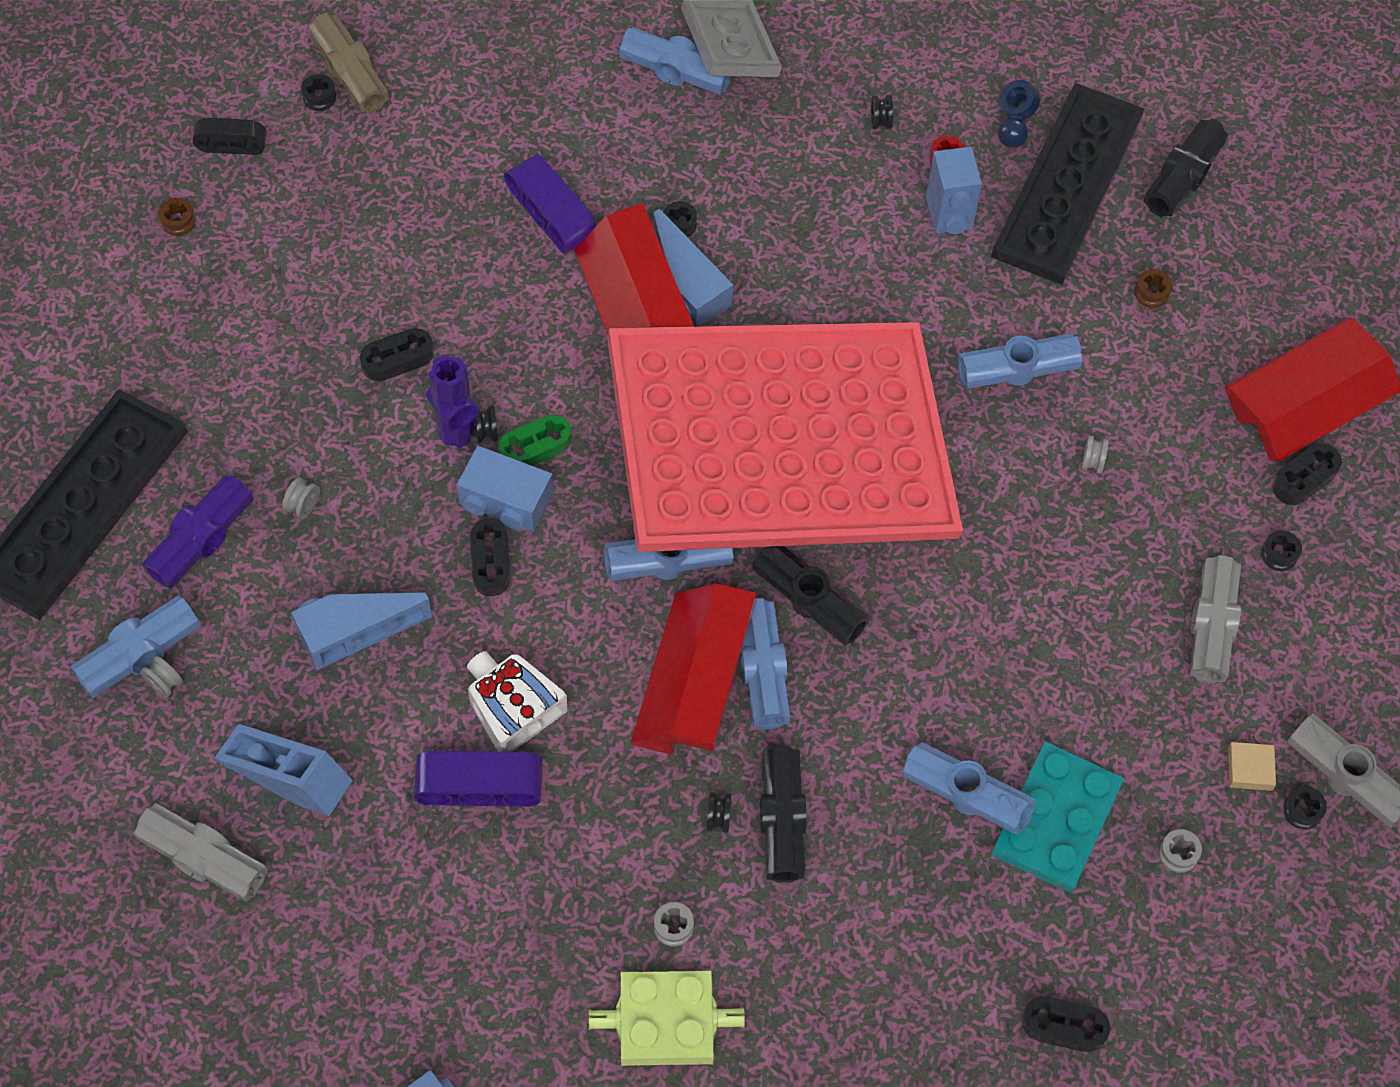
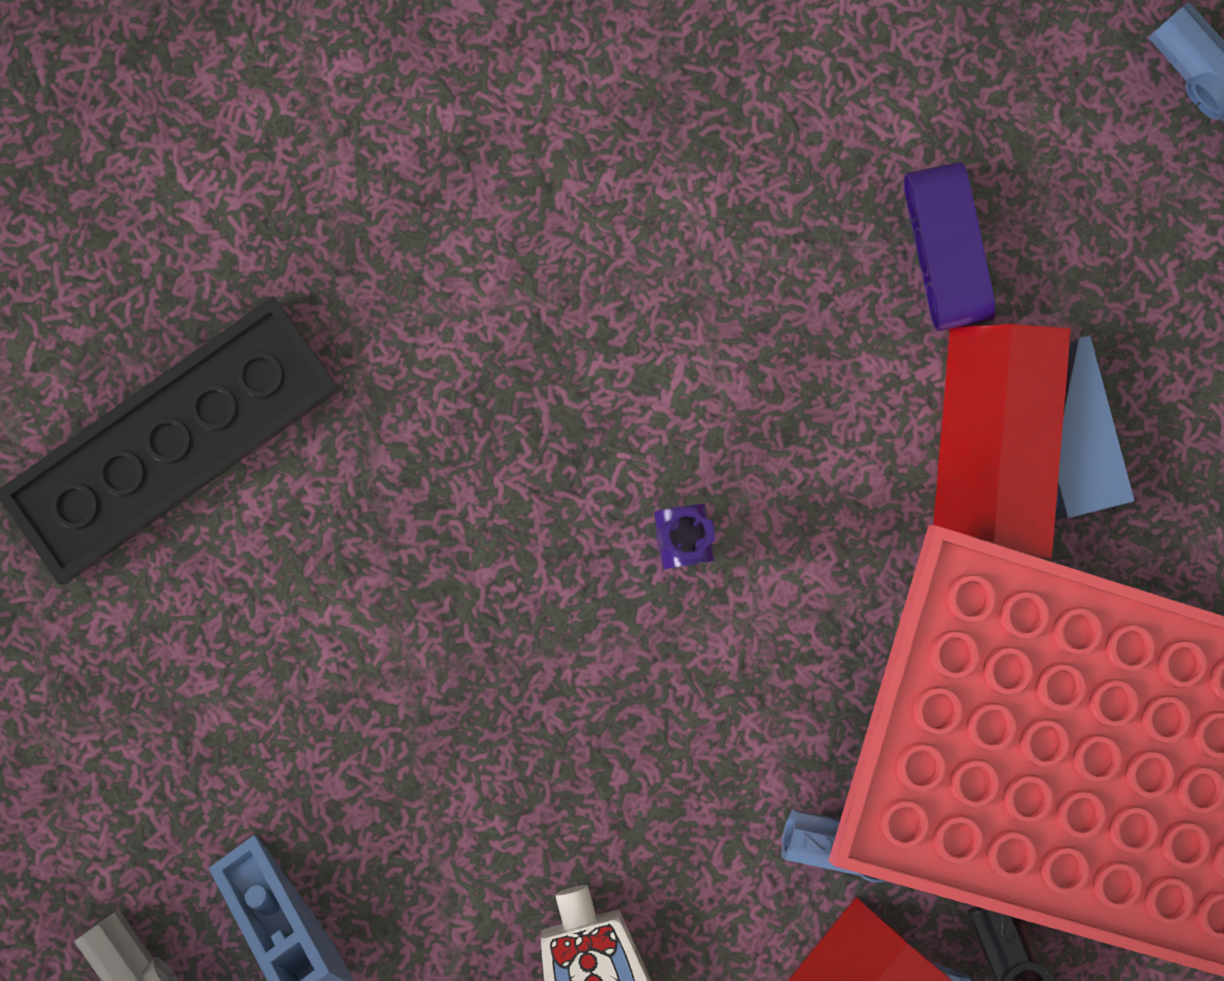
camera: 25 degrees right, 25 degrees up
(134, 646) = (165, 681): medium blue piece -> none
(161, 676) = (181, 738): light grey bush -> none
(173, 206) = (433, 34): reddish brown bush -> none
(197, 531) = (298, 551): dark purple piece -> none
(301, 498) = (444, 559): light grey bush -> none
(351, 622) = (432, 768): medium blue slope -> none
(396, 354) = (650, 377): black beam -> none
(481, 557) = (660, 751): black beam -> none
(486, 425) = (725, 555): black bush -> none
(505, 489) = (705, 665): medium blue brick -> none
(535, 442) = (774, 618): green beam -> none
(678, 209) = (1129, 347): black bush -> none

